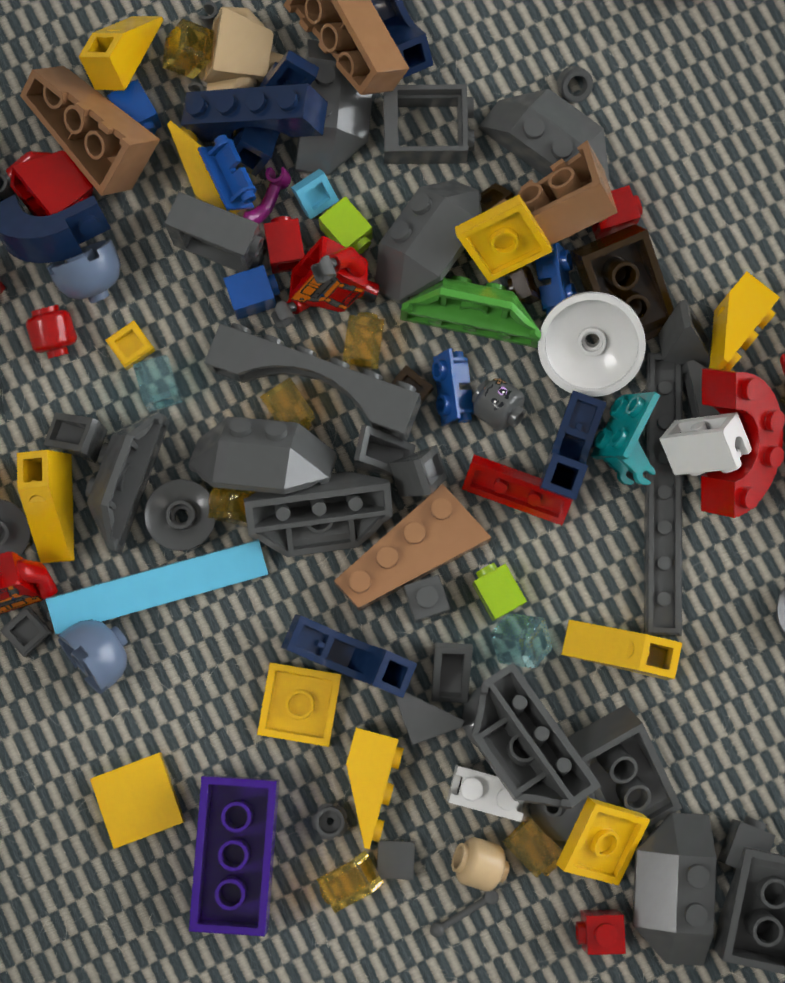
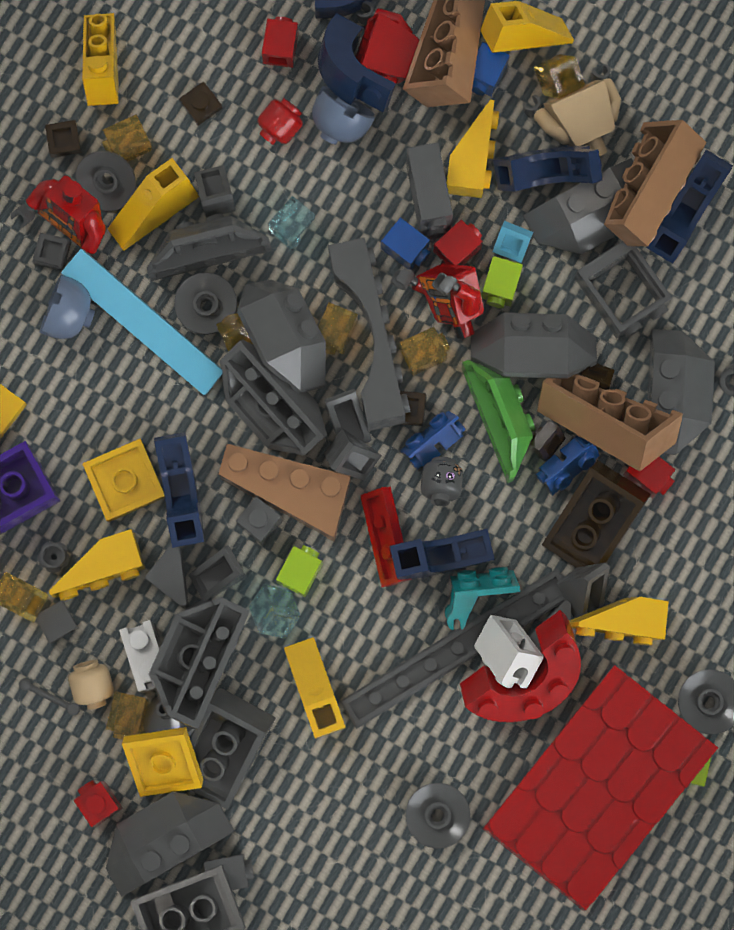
camera: 60 degrees right, 0 degrees up
(130, 345) = (309, 184): yellow tile -> none
(232, 185) = (475, 169): blue hinge -> none
(267, 204) = (469, 211): magenta piece -> none
(283, 108) = (550, 171): dark blue arch -> none
(503, 238) = (563, 400): yellow tile -> none
(585, 366) = (515, 525): white dish -> none

